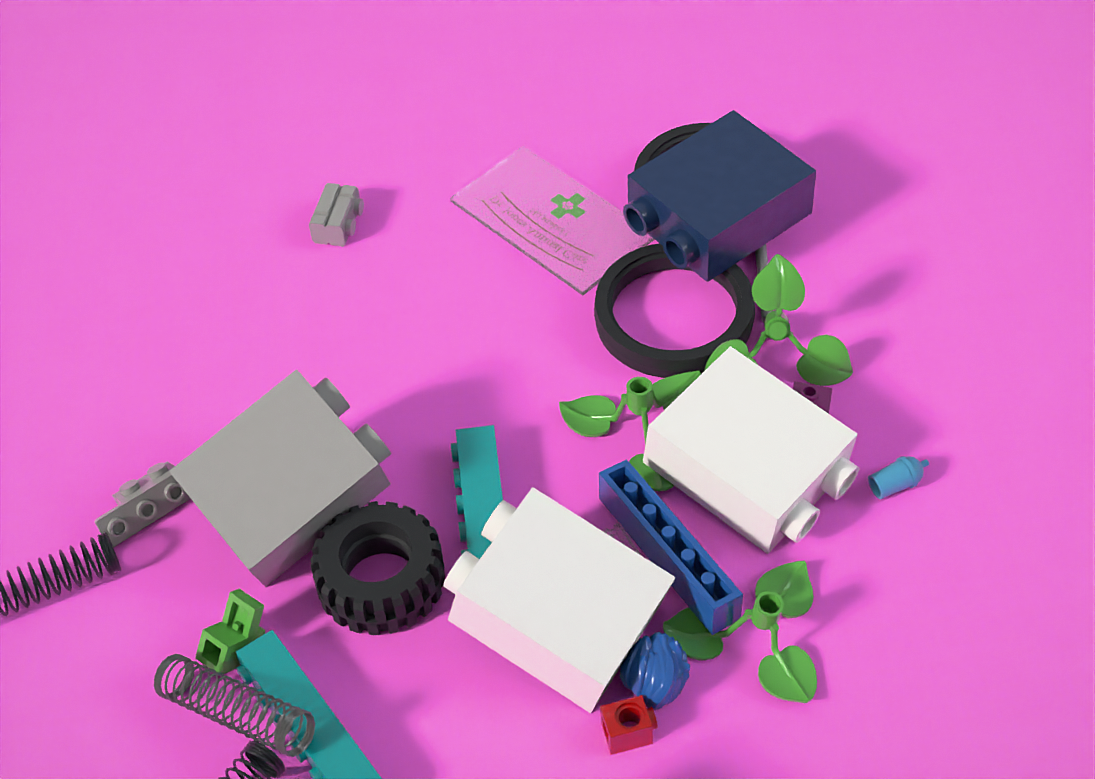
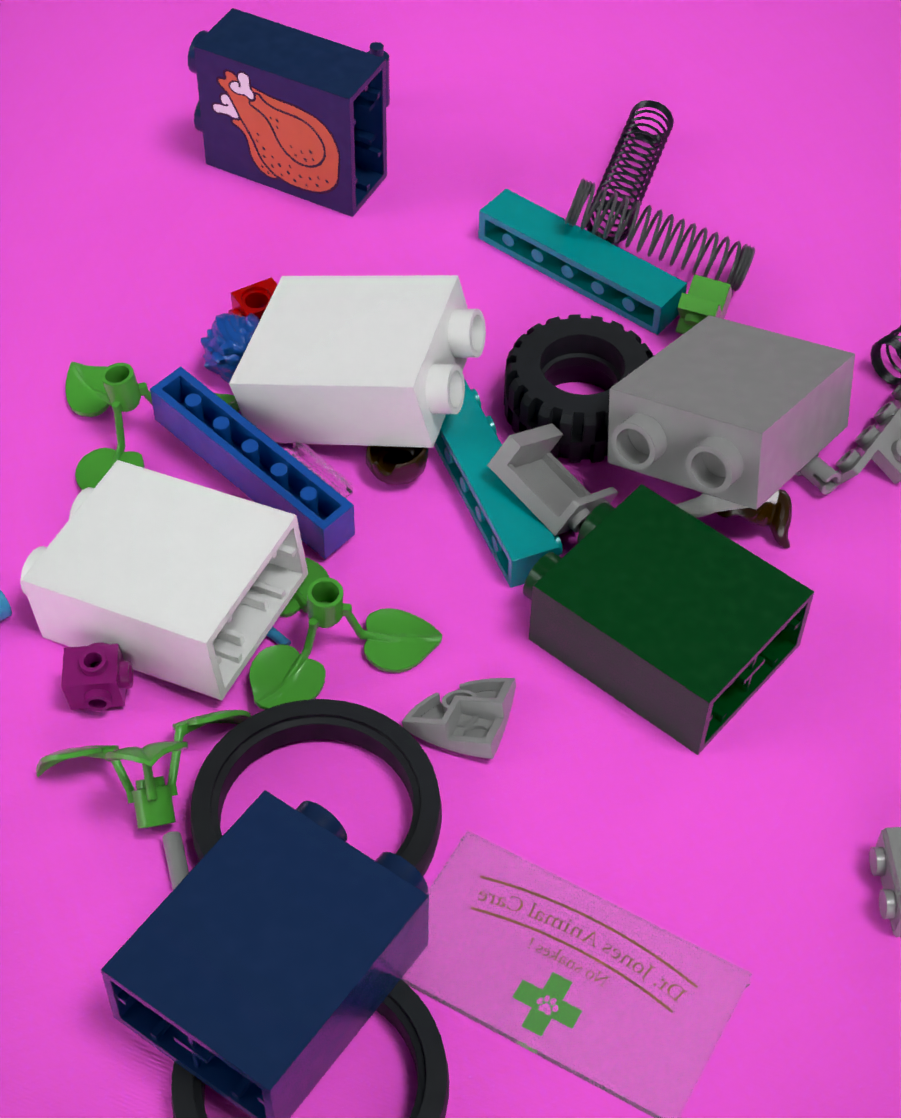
camera: 160 degrees right, 0 degrees up
(405, 368) = (666, 615): none -> dark green brick
(439, 476) = (544, 482): none -> light grey panel
(561, 354) = (465, 719): none -> light grey brick

